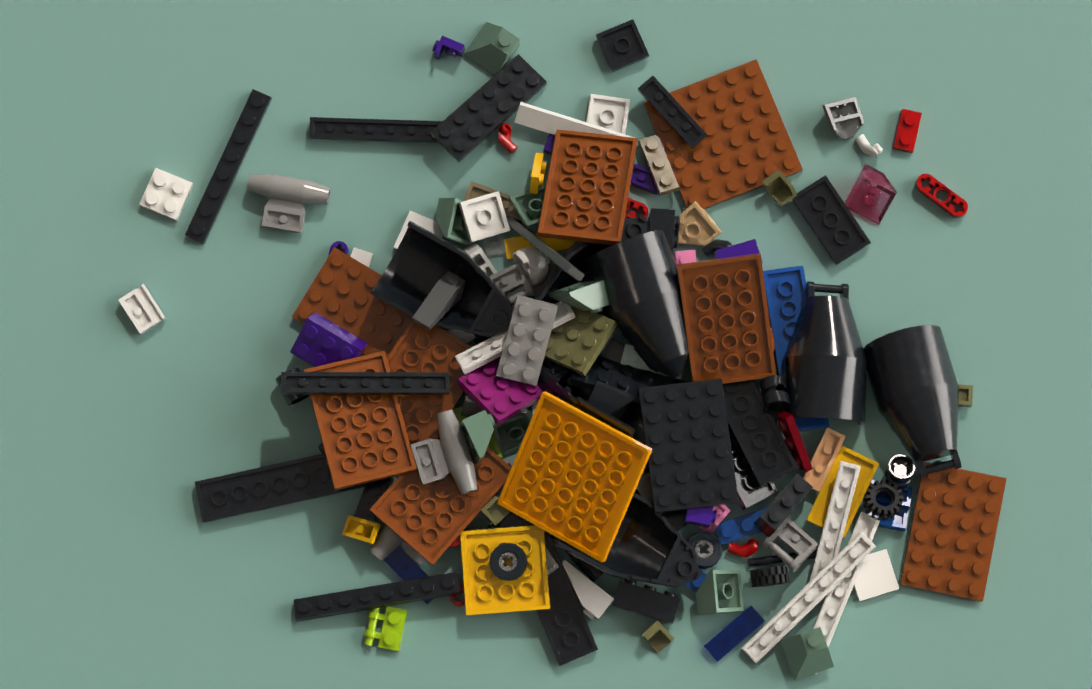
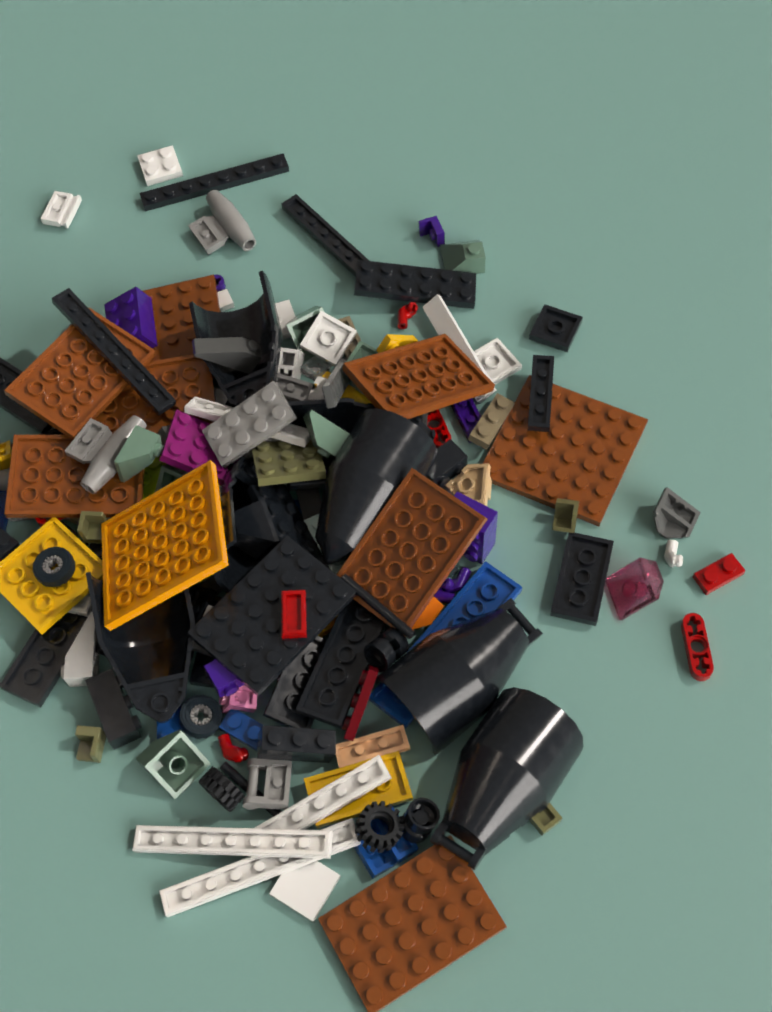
camera: 50 degrees right, 20 degrees down
(706, 433) = (294, 614): none -> red tile
(734, 633) = (146, 808): clear blue tile -> none
(752, 373) = (379, 607): none -> black bar
(807, 653) = (177, 887): sand green slope -> none

